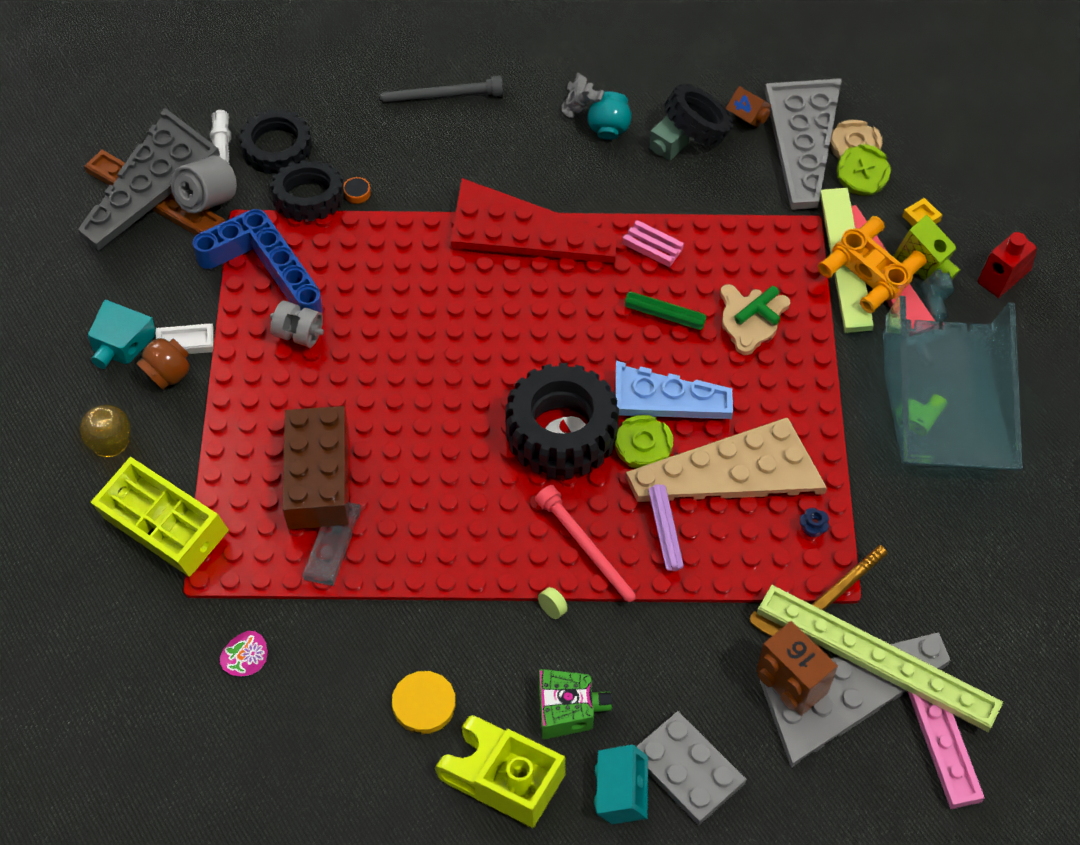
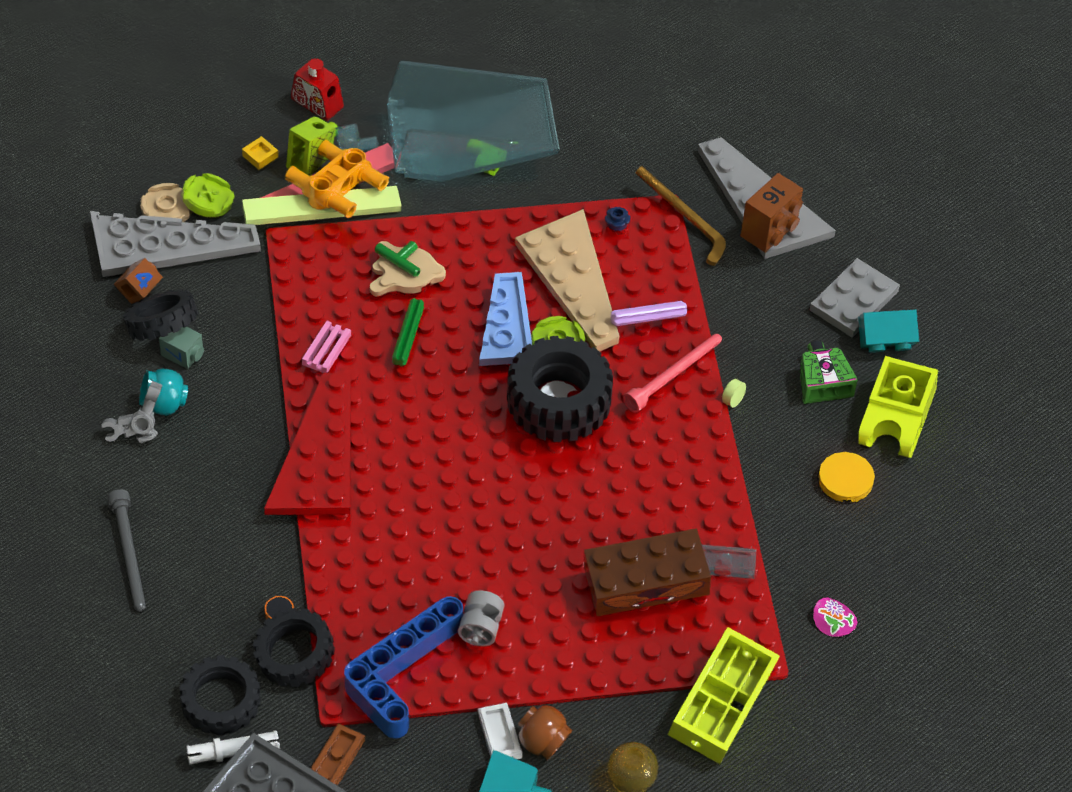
camera: 100 degrees left, 5 degrees down
(203, 184) = (310, 733): light grey piece -> none
(882, 658) = (734, 177): yellowish green tile -> none
(948, 753) = (793, 140): bright pink plate -> none

